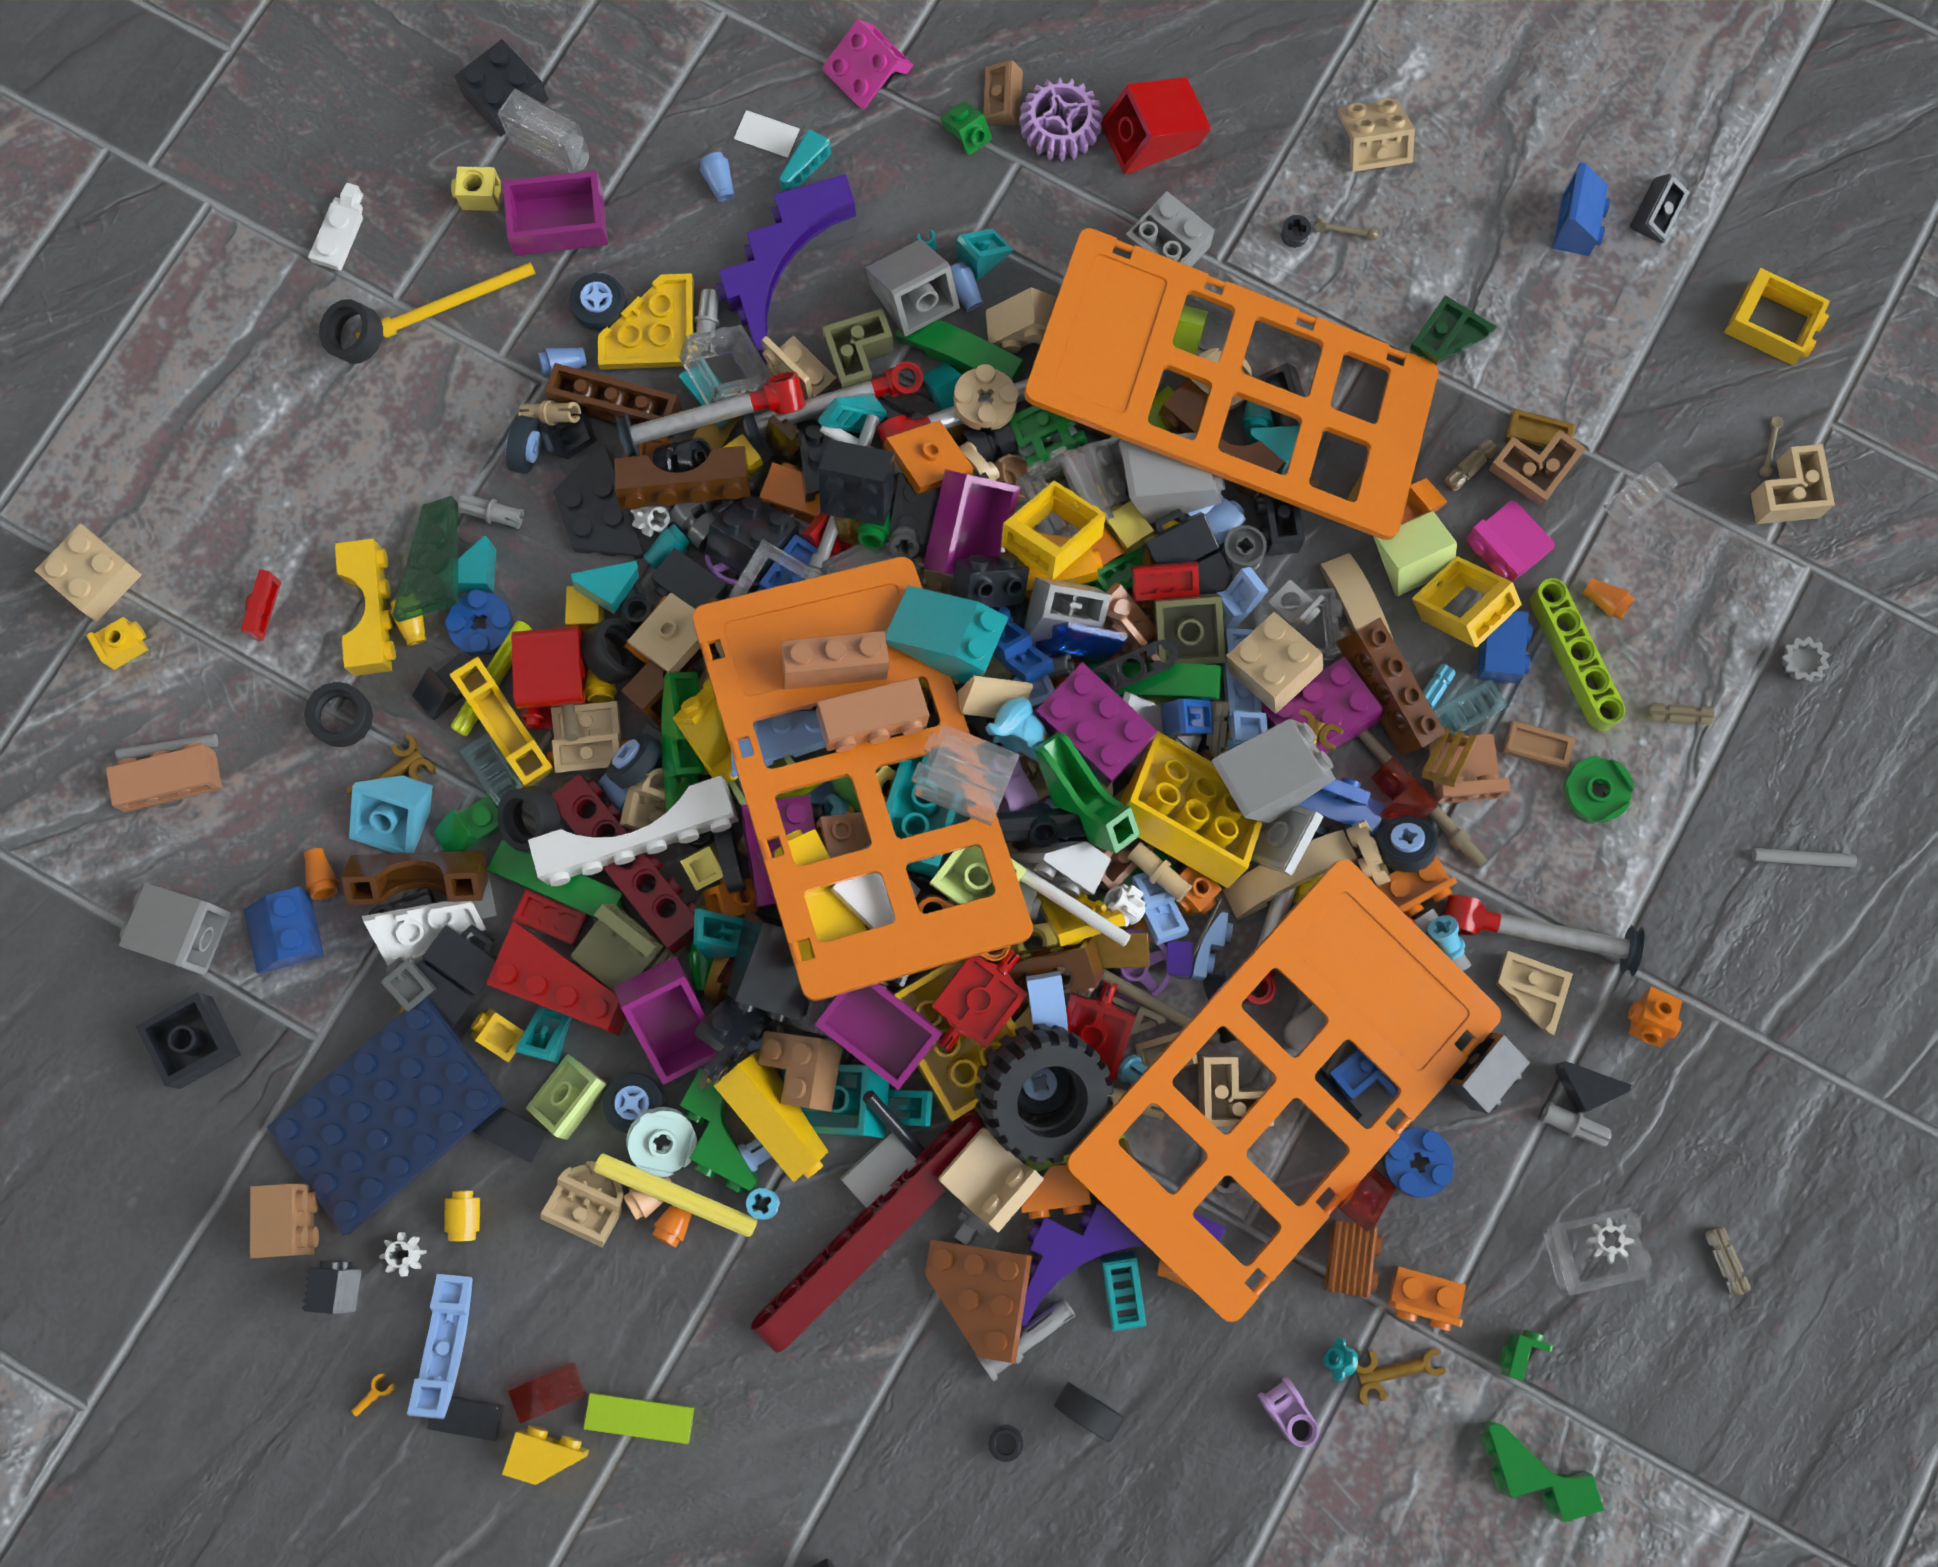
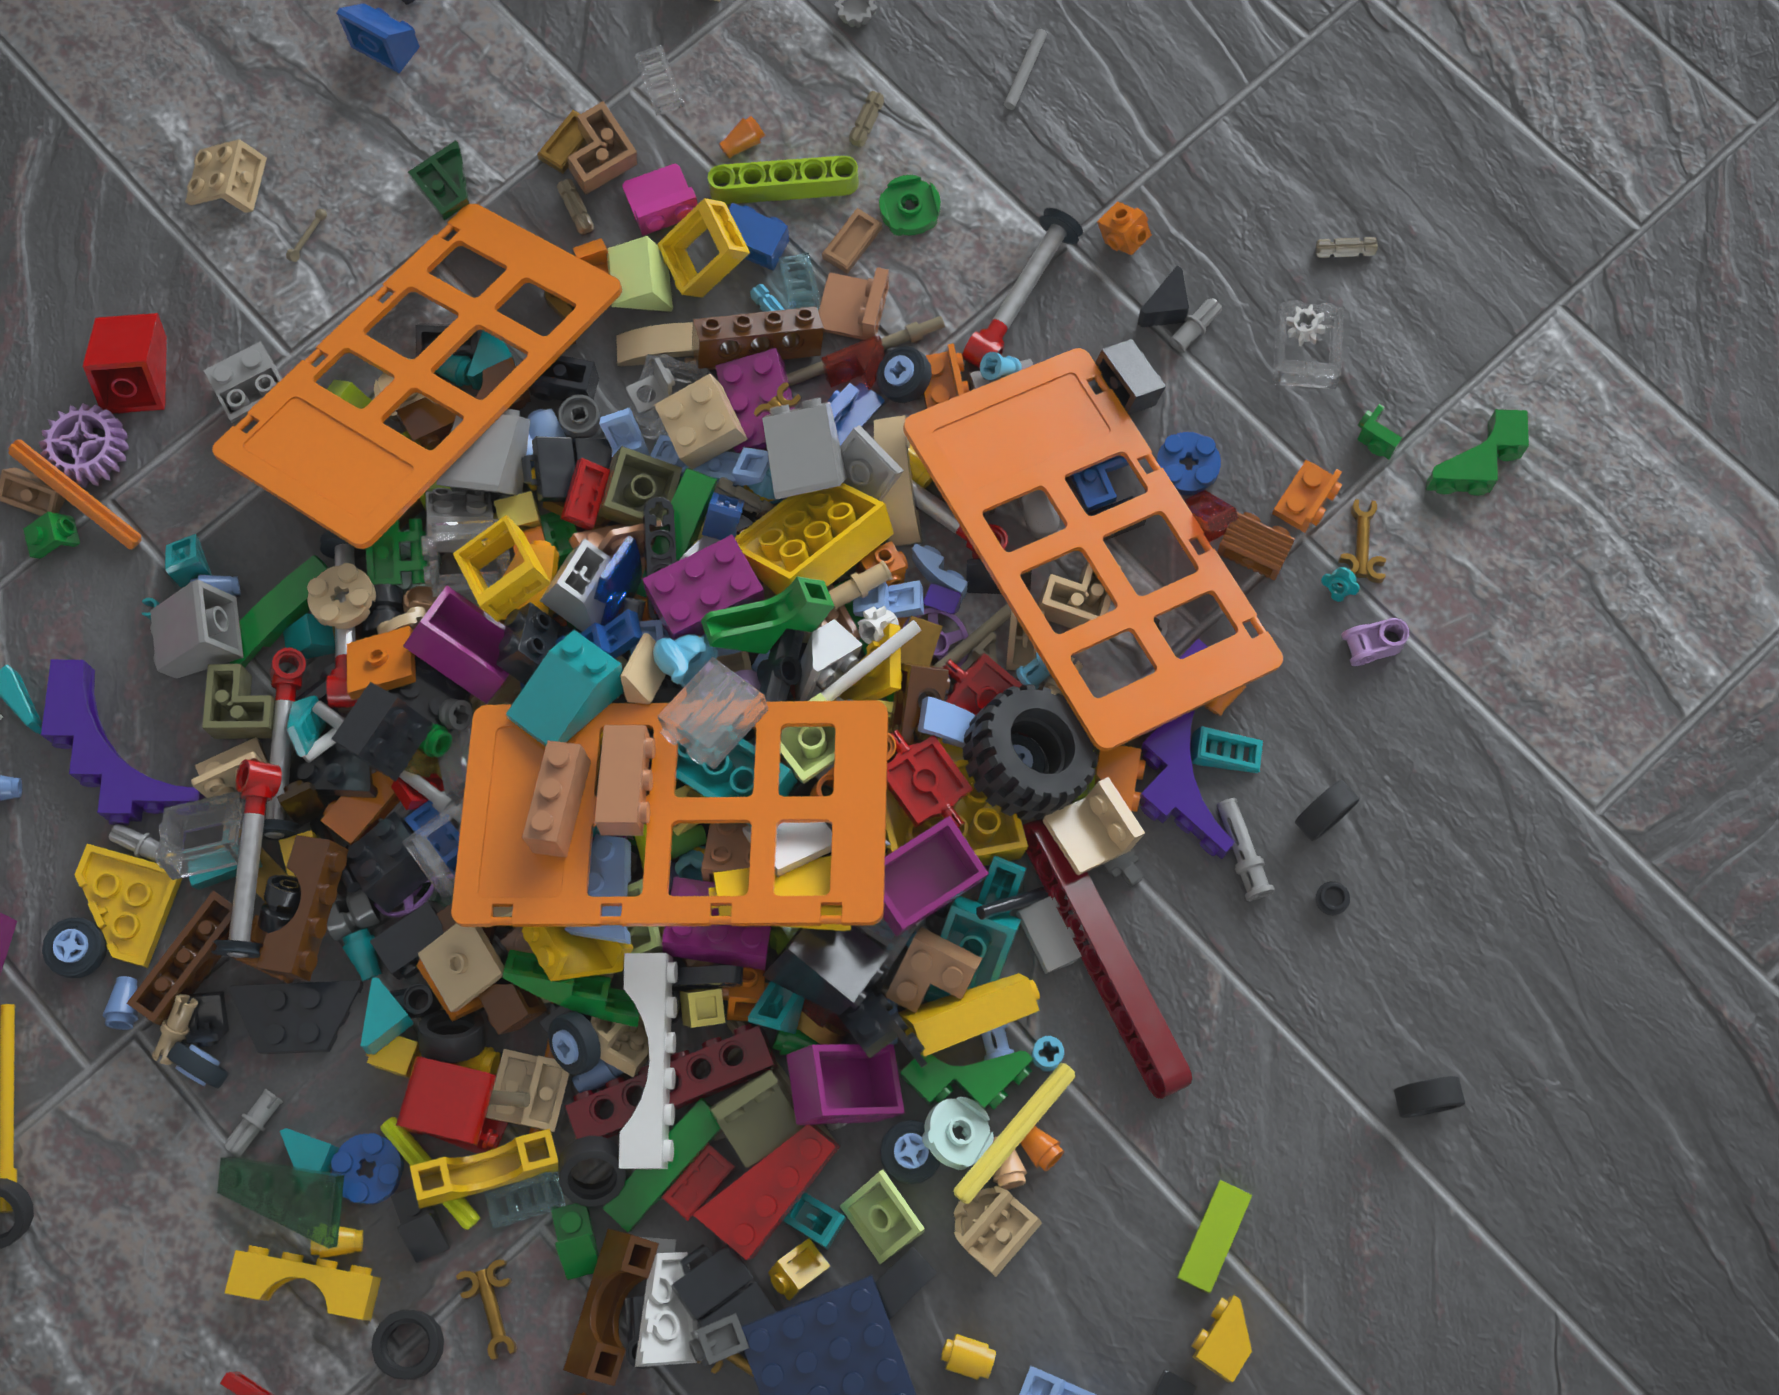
camera: 70 degrees left, 5 degrees down
(390, 813) = (533, 1317): medium azure slope -> none
(547, 1393) = (1165, 1322): clear red slope -> none
(651, 519) = (329, 959): white gear -> none
(982, 1294) = (1193, 873): dark orange plate -> none
(1009, 130) = (74, 494): none -> orange axle
(1020, 319) = (276, 539): tan brick -> none
(1206, 927) = (920, 569): white sticker -> none
(1303, 227) = (292, 285): black bush -> none
(1372, 862) = (899, 405): tan plate -> none
(1456, 741) = (826, 300): pearl gold tile -> none
(1535, 989) = (1067, 316): tan wing -> none

